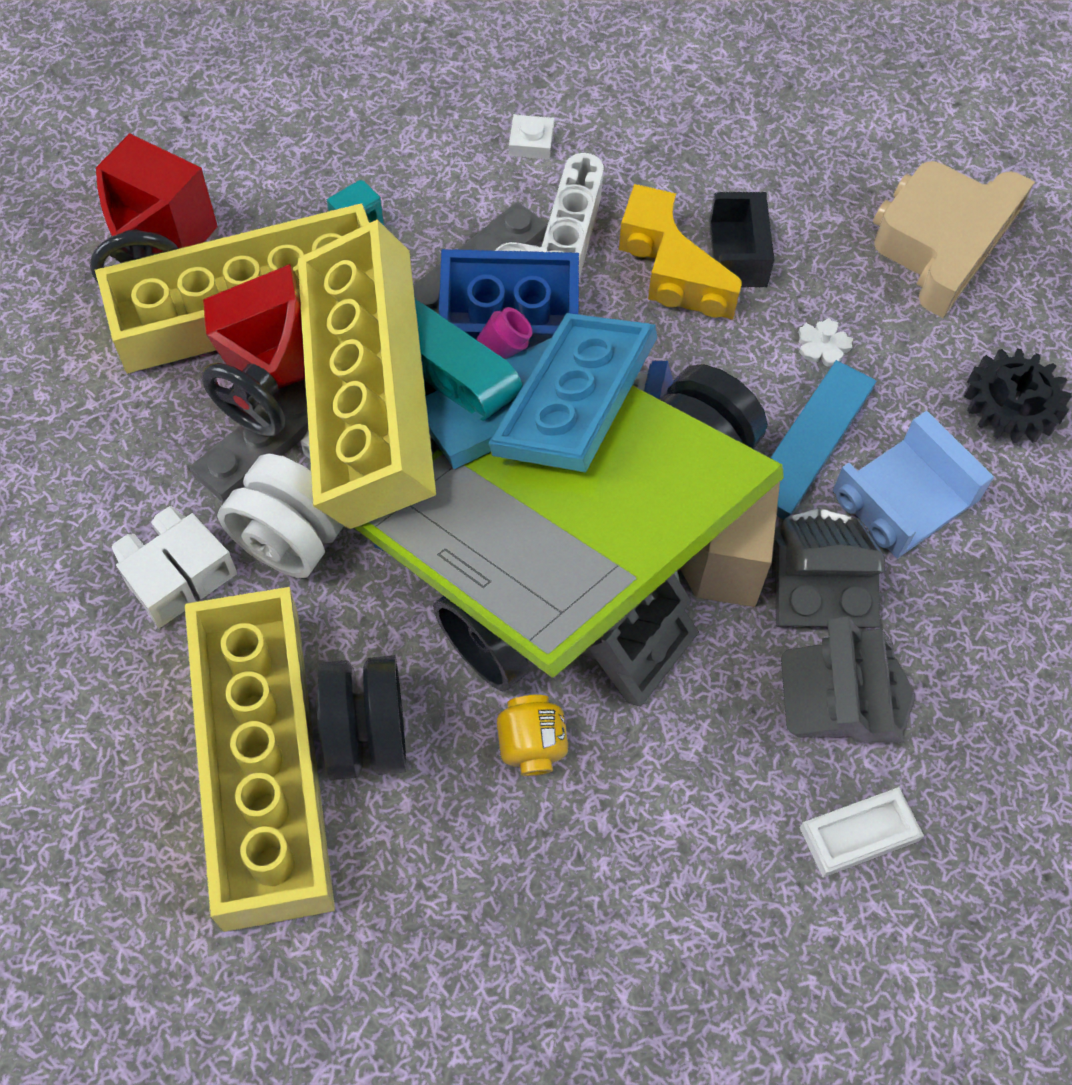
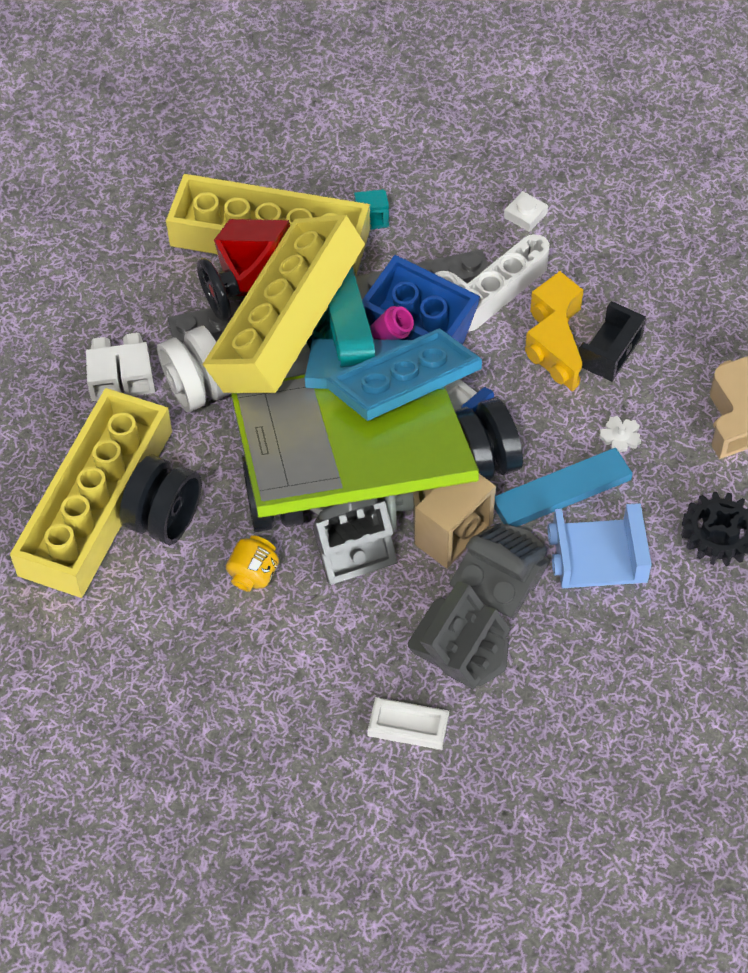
camera: 35 degrees right, 5 degrees down
(150, 203) = (243, 148): red piece -> none

